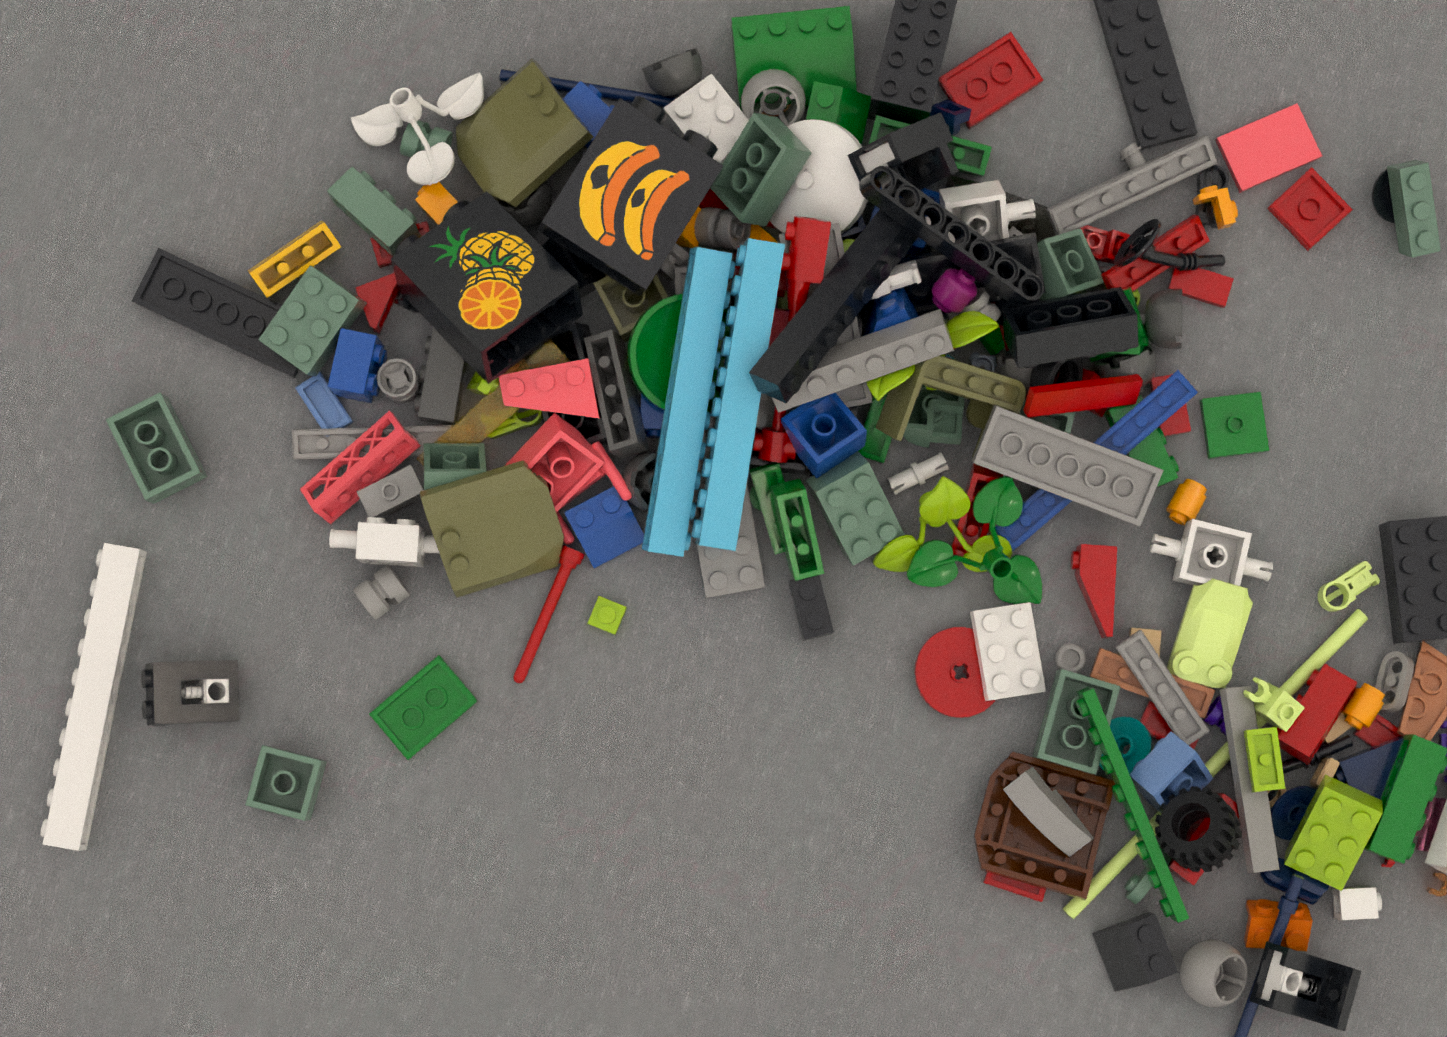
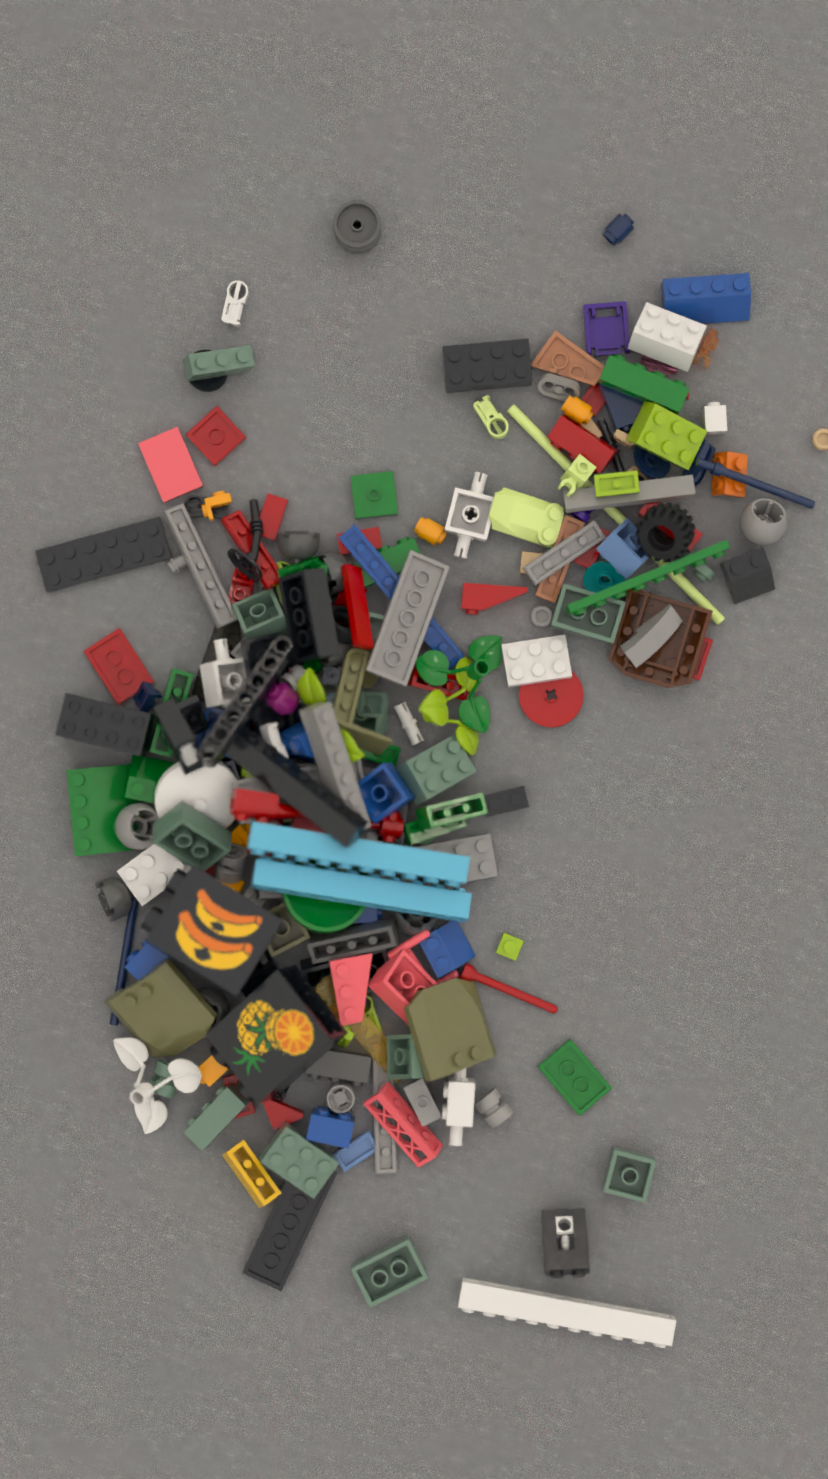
camera: 85 degrees left, 5 degrees up
(1305, 986) = (772, 459): black brick -> none

